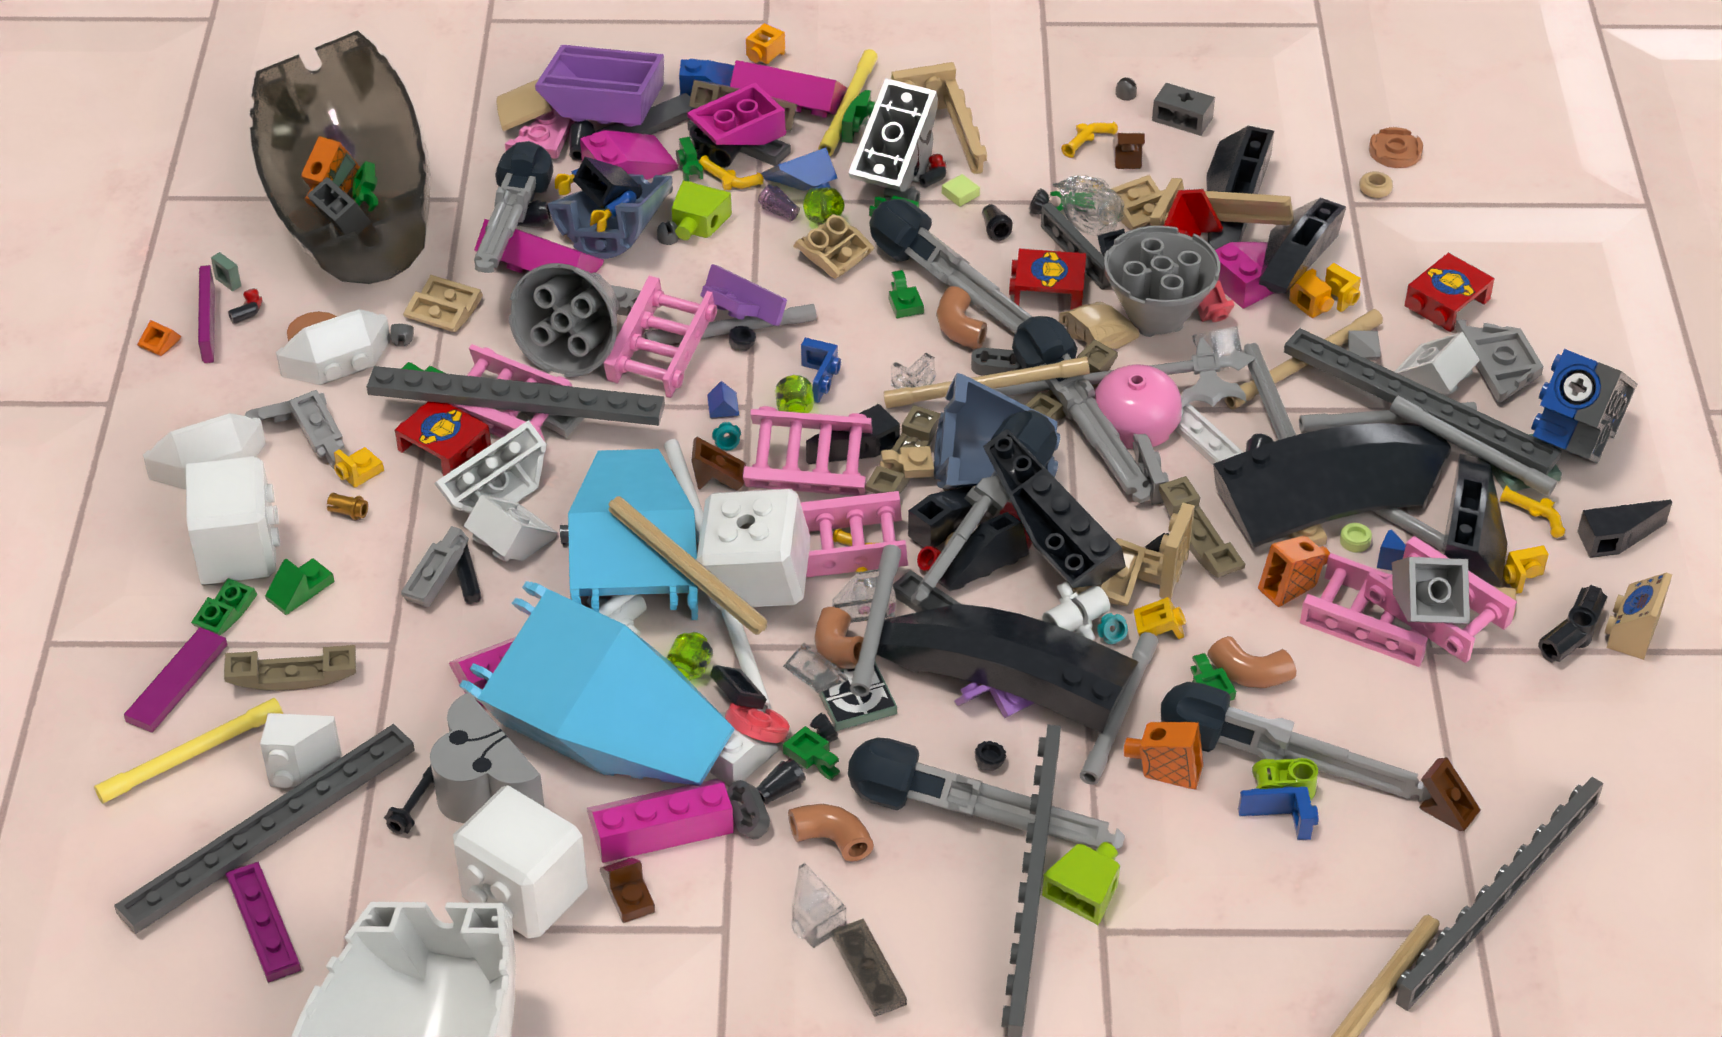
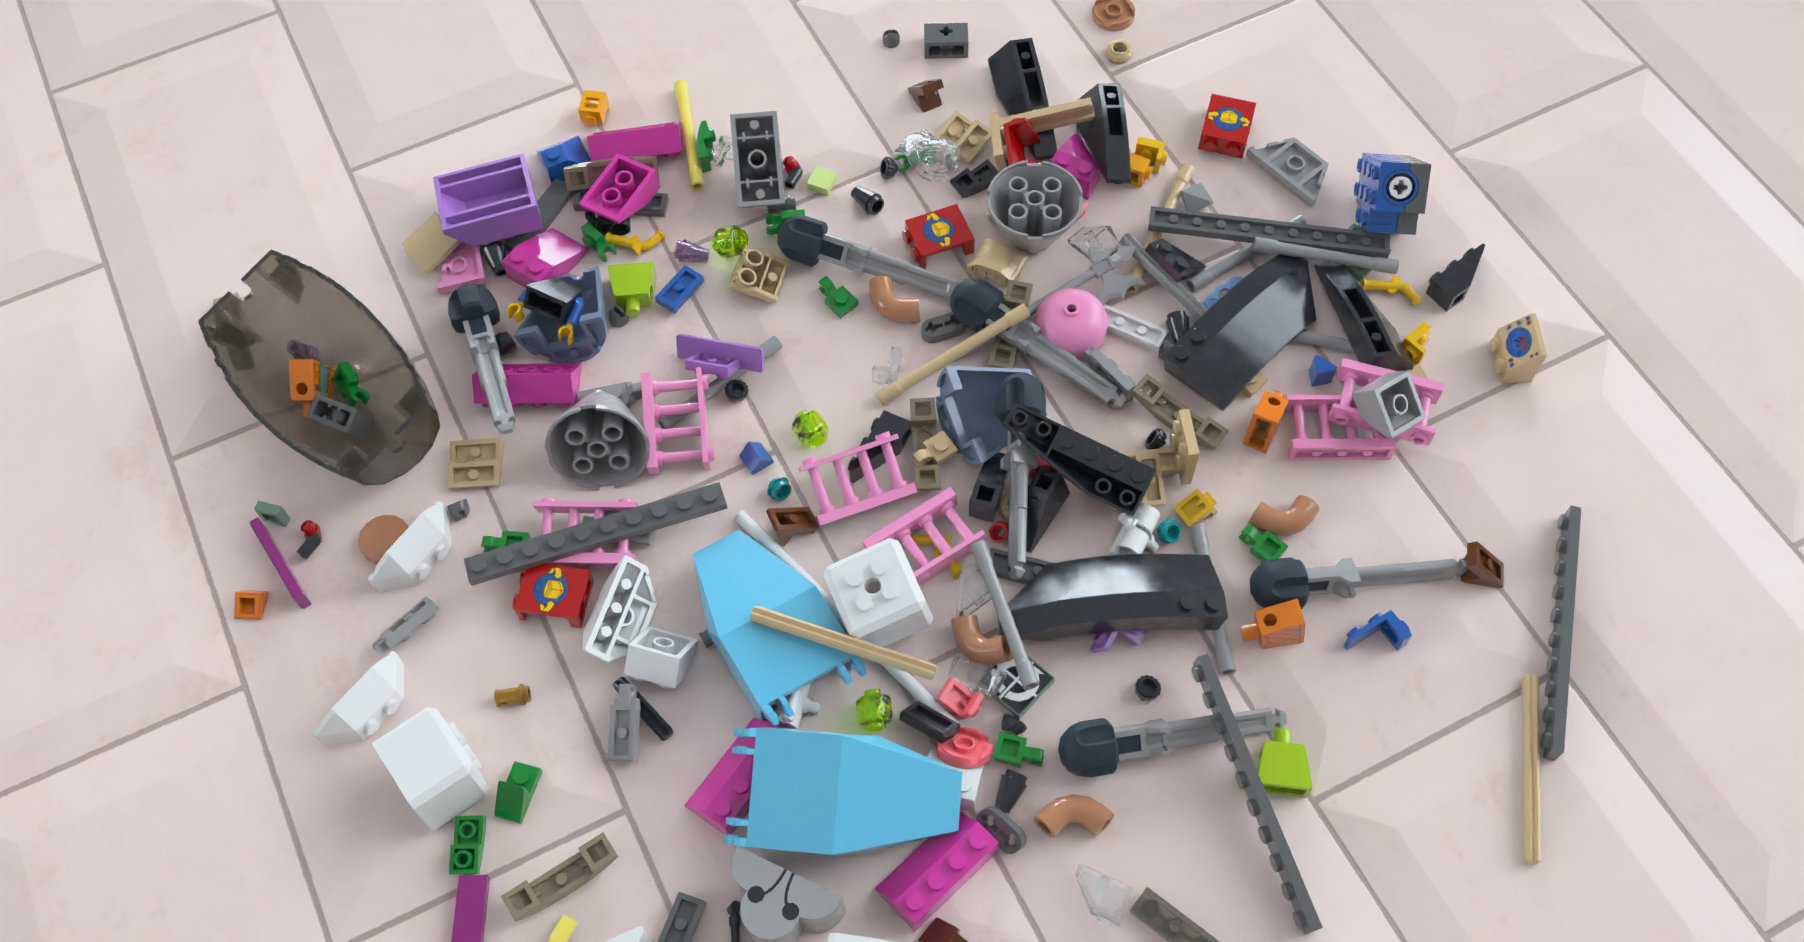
camera: 25 degrees left, 15 degrees up
(317, 425) = (446, 633): light grey hinge -> none
(358, 466) = (498, 653): yellow bracket -> none
(745, 230) = (679, 289): none -> blue plate
(782, 682) = (959, 699): none -> coral bracket
(804, 172) = (694, 214): slope -> none
(825, 359) = (811, 381): blue bracket -> none
(942, 80) = (759, 95): tan bracket -> none
(1071, 240) = (939, 195): dark grey tile -> none
(1087, 132) = (883, 89): yellow piece -> none
(1286, 773) = (1361, 608): lime piece -> none
(1292, 389) = (1173, 260): none -> black wing
(1355, 537) = (1285, 368): yellowish green tile -> none
(1441, 363) = (1256, 193): white slope -> none
(1577, 628) = (1480, 377): black piece -> none

